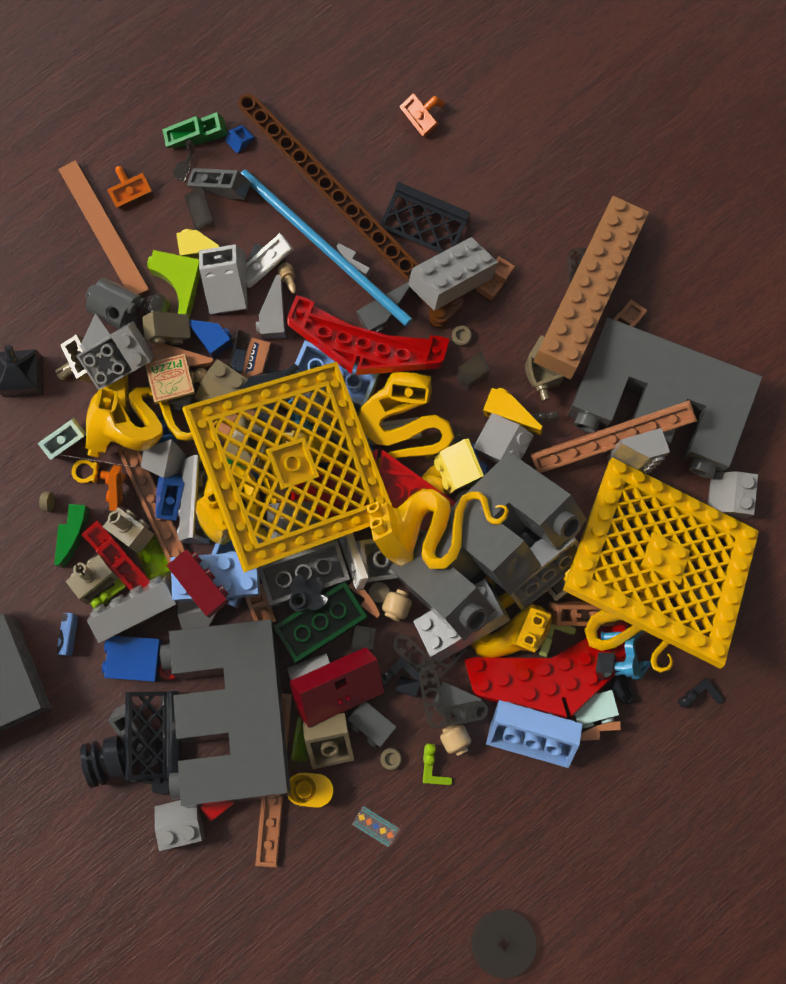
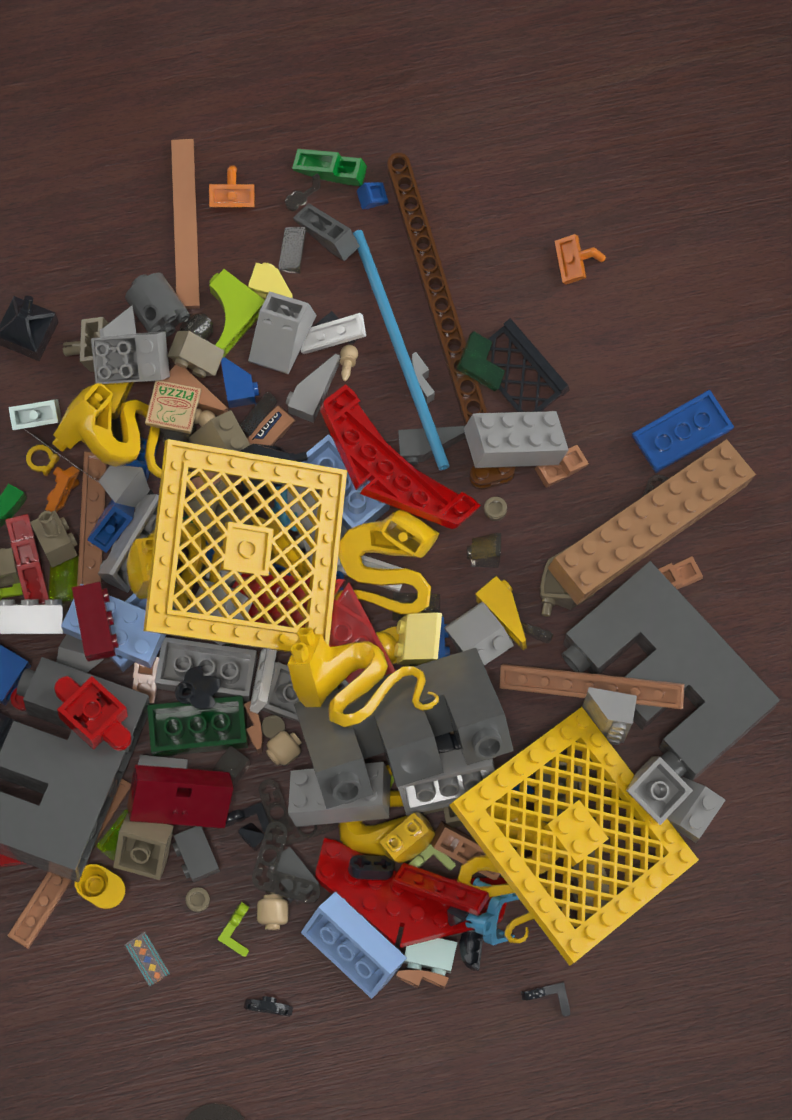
camera: 25 degrees right, 5 degrees down
(235, 657) = (93, 713): none -> red brick
(389, 230) = (475, 365): none -> clear green tile
(490, 814) = (268, 1005): none -> black plate
(515, 665) = (371, 867): none -> black beam
(573, 206) = (682, 431): none -> blue plate
(580, 656) = (440, 889): none -> red tile
(704, 491) = (658, 789): none -> light grey slope

